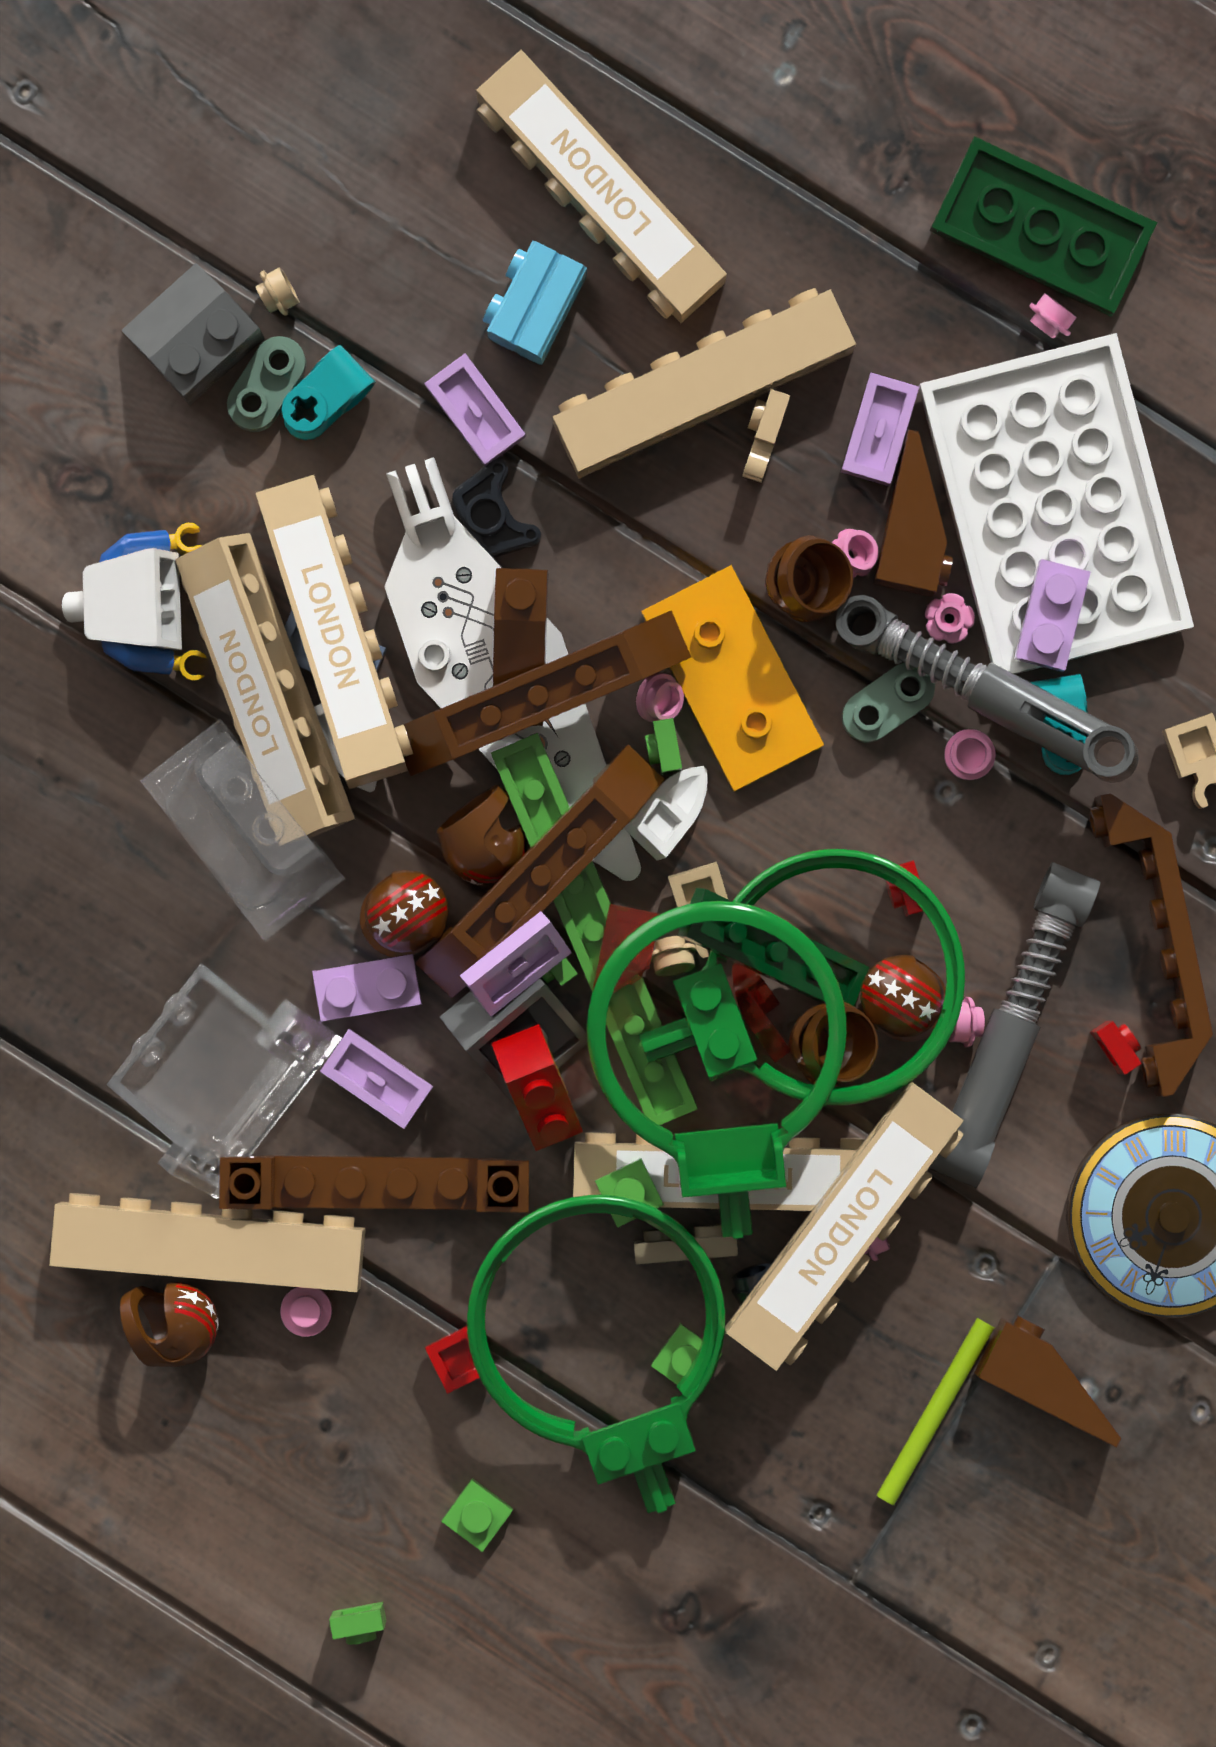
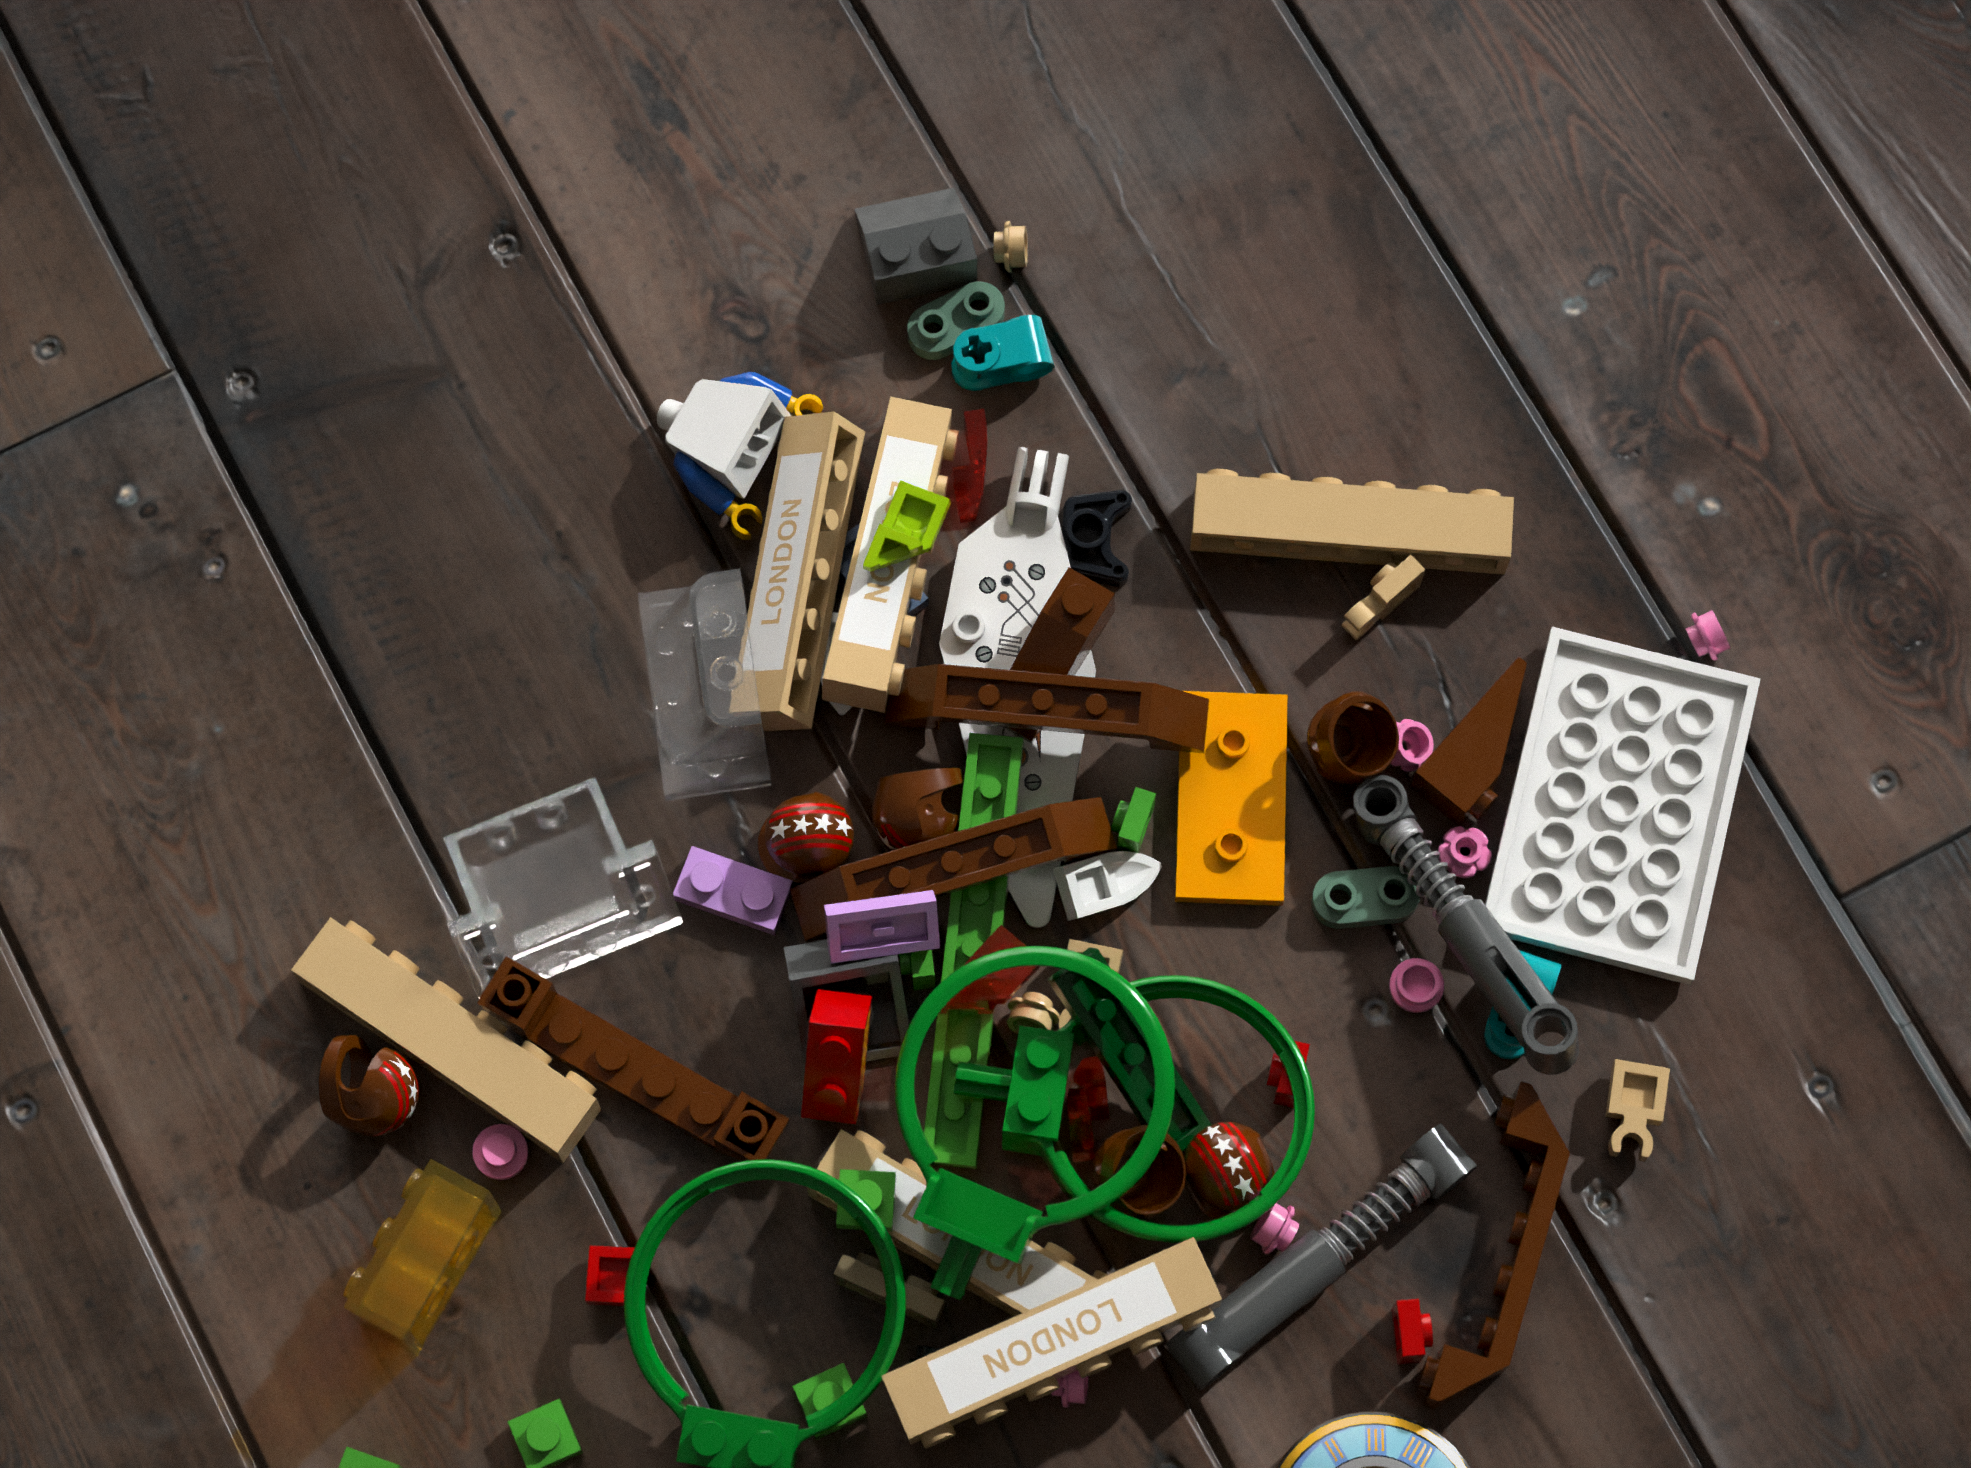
camera: 30 degrees right, 15 degrees down
(297, 1438) = (421, 1256): none -> clear yellow brick
(340, 606) = (908, 527): none -> lime slope
(362, 525) = (970, 479): none -> clear red slope
(376, 1078) = (692, 975): lavender plate -> none
(475, 410) = (1130, 437): lavender plate -> none
(535, 302) = (1238, 373): medium azure brick -> none
(600, 187) = (1352, 310): brick -> none
(659, 697) = (1154, 772): bright pink plate -> none
(880, 429) = (1491, 648): lavender plate -> none
(1043, 226) = (1742, 553): dark green plate -> none
(1052, 615) = (1563, 894): lavender plate -> none

